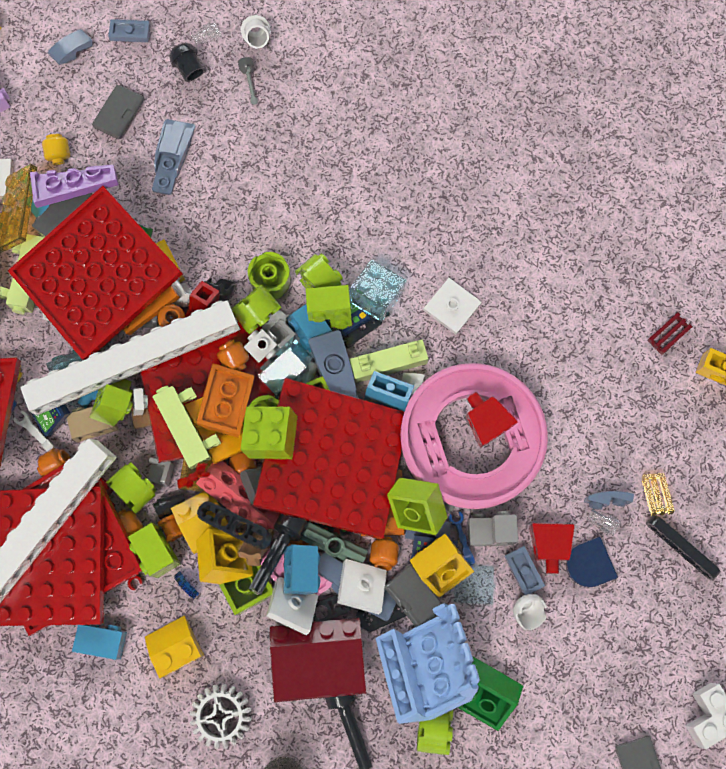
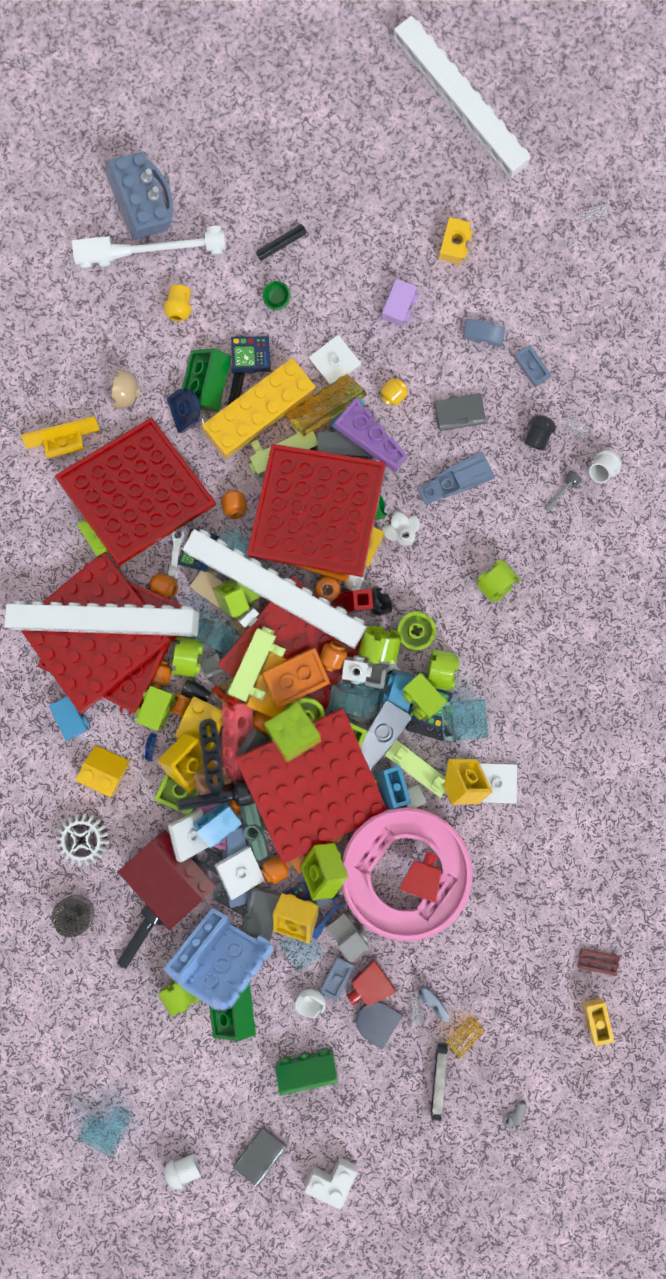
camera: 55 degrees right, 10 degrees up
(35, 348) = (234, 504): none -> orange head
(131, 447) = (214, 635): none -> clear light blue brick
(172, 226) = (401, 525): none -> white plate
(281, 179) = (498, 581): none -> lime brick
(432, 327) = (466, 782): none -> yellow slope
(591, 662) = (306, 1071): none -> green slope

